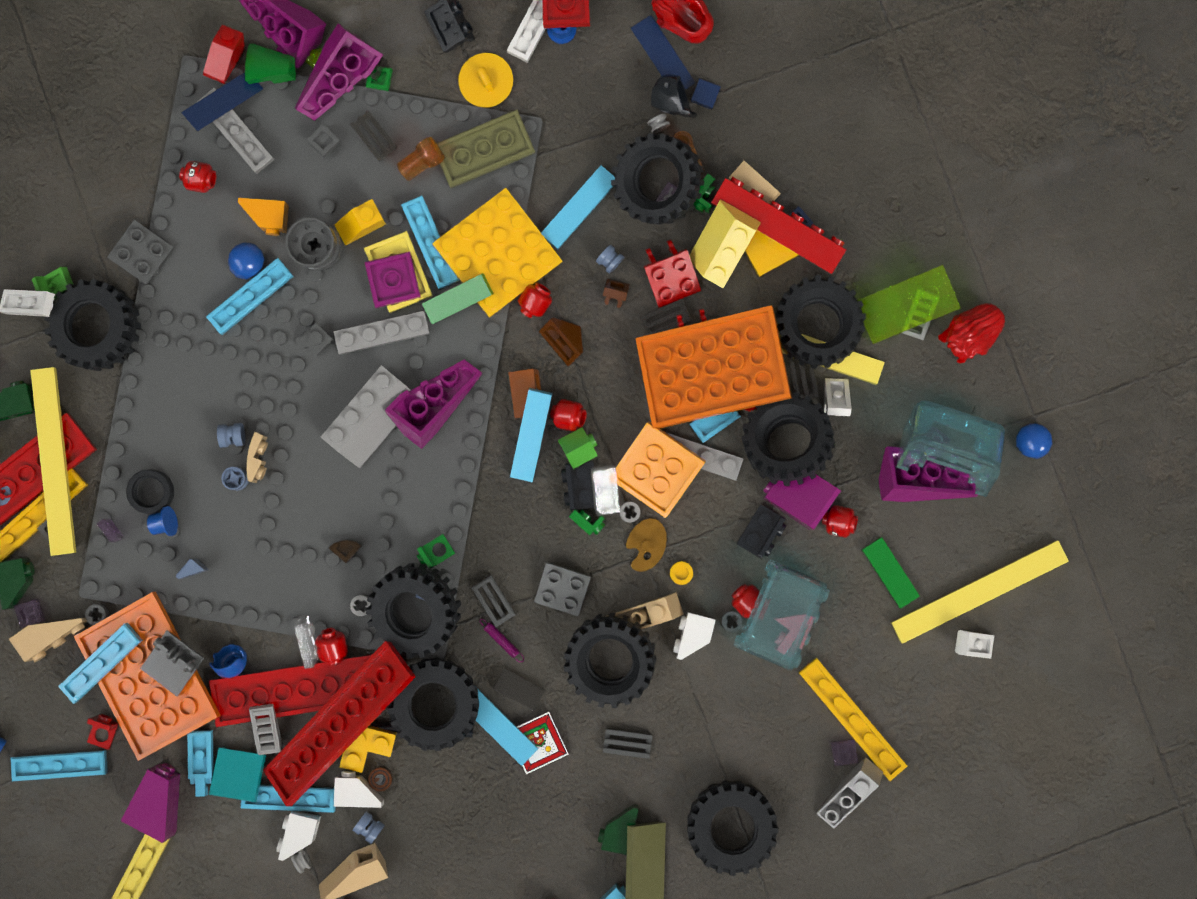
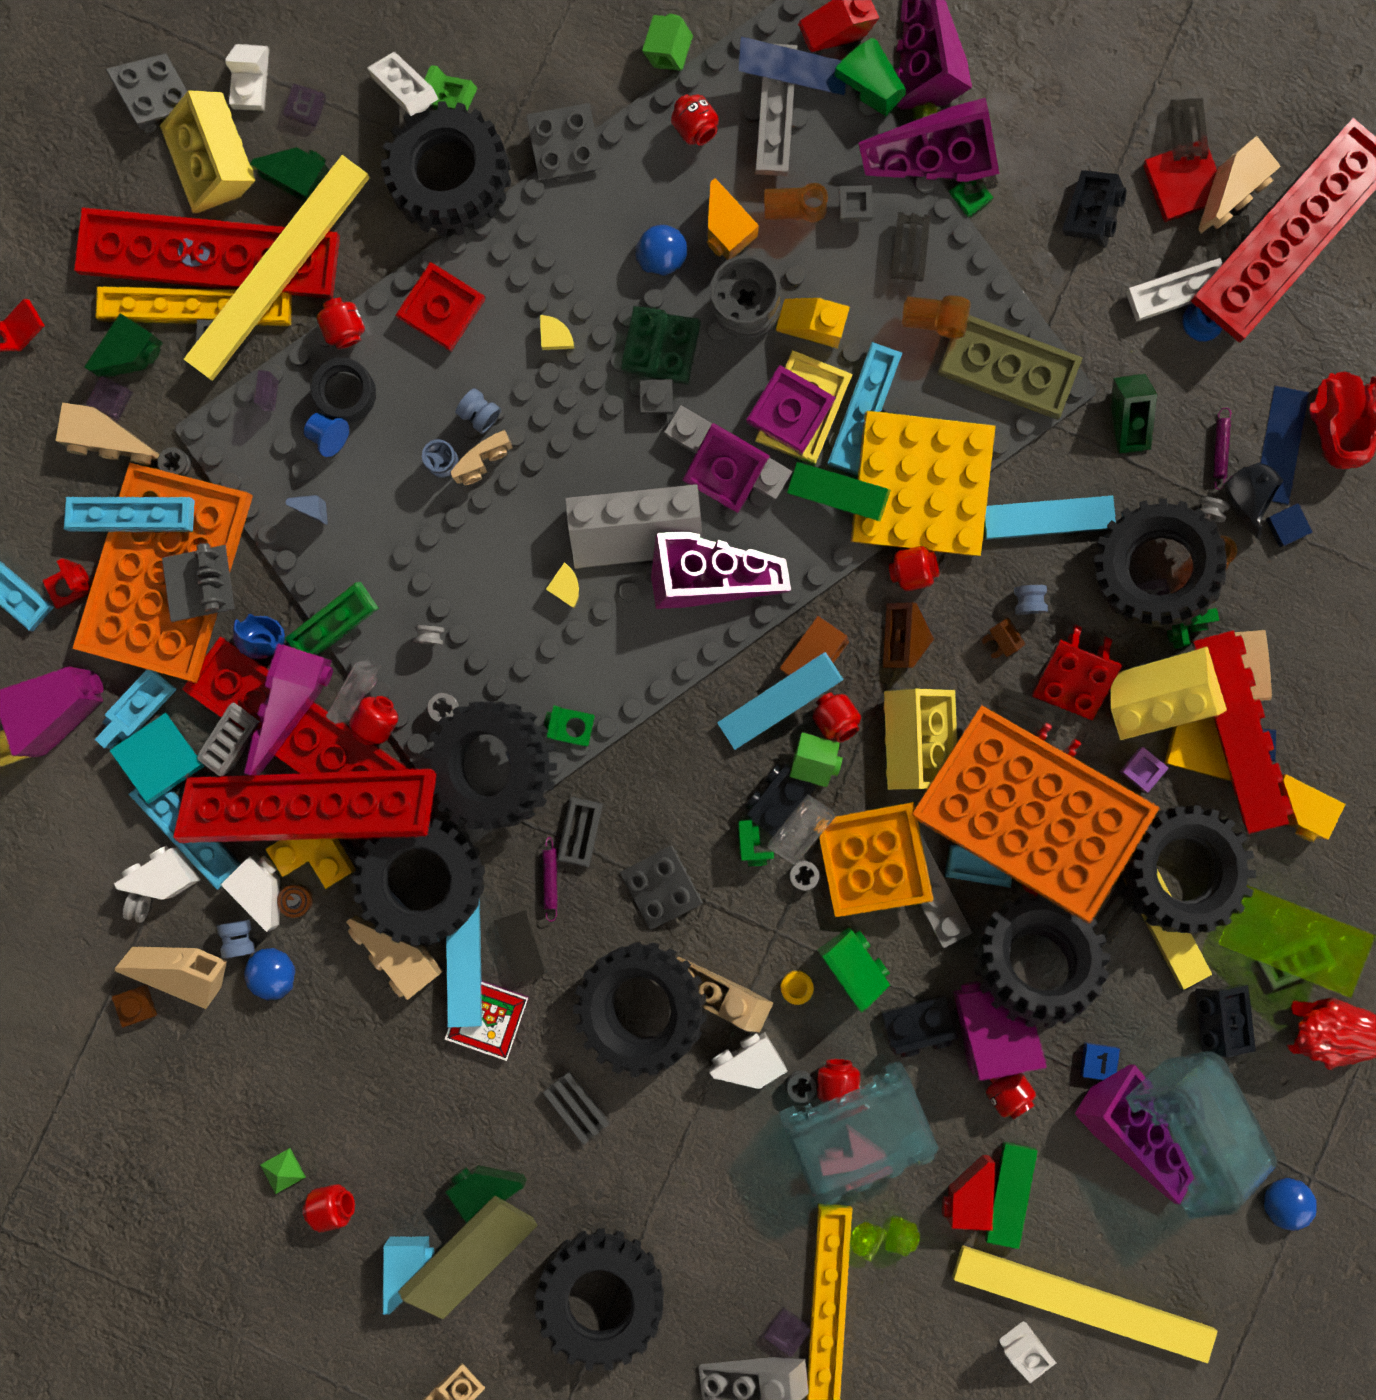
camera: 45 degrees right, 0 degrees up
(115, 458) = (340, 323): none -> red head
(144, 148) = (667, 42): none -> bright green brick
(158, 399) = (440, 306): none -> red tile
(232, 357) = (554, 334): none -> light yellow tile
(249, 296) = (630, 290): medium azure tile -> none
(261, 617) = (333, 621): none -> green tile
(273, 666) = (295, 684): none -> magenta wedge
(289, 173) = (790, 203): none -> clear orange piece
(293, 310) = (660, 345): none -> clear green slope
(317, 575) = (429, 635): none -> light grey bush
(345, 549) = (481, 636): dark brown tile -> none
(363, 482) = (565, 586): none -> light yellow tile
(388, 342) = (725, 467): none -> magenta tile
(404, 829) = (269, 974): none -> blue hair
(466, 754) = (406, 964): none -> tan slope
(485, 80) = (1077, 299): yellow shield -> none
(570, 112) = (1133, 412): none -> dark green slope
(618, 383) = (918, 735): none -> light yellow slope
(633, 86) = (1222, 448): none -> magenta piece
(647, 537) = (797, 917): pearl gold piece -> none
(699, 533) = (855, 968): none -> green slope
(750, 291) = (1143, 769): none -> medium lavender plate
(837, 397) = (1130, 964): white slope -> none
(839, 666) = (867, 1240): none -> clear neon green plate
(854, 231) = (1312, 810): none -> yellow slope
(855, 647) = (902, 1236): none -> clear neon green plate
(870, 461) = (1099, 1061): none -> blue tile
(870, 593) = (971, 1197): none -> red slope
(913, 378) = (1225, 1020): none -> black bracket

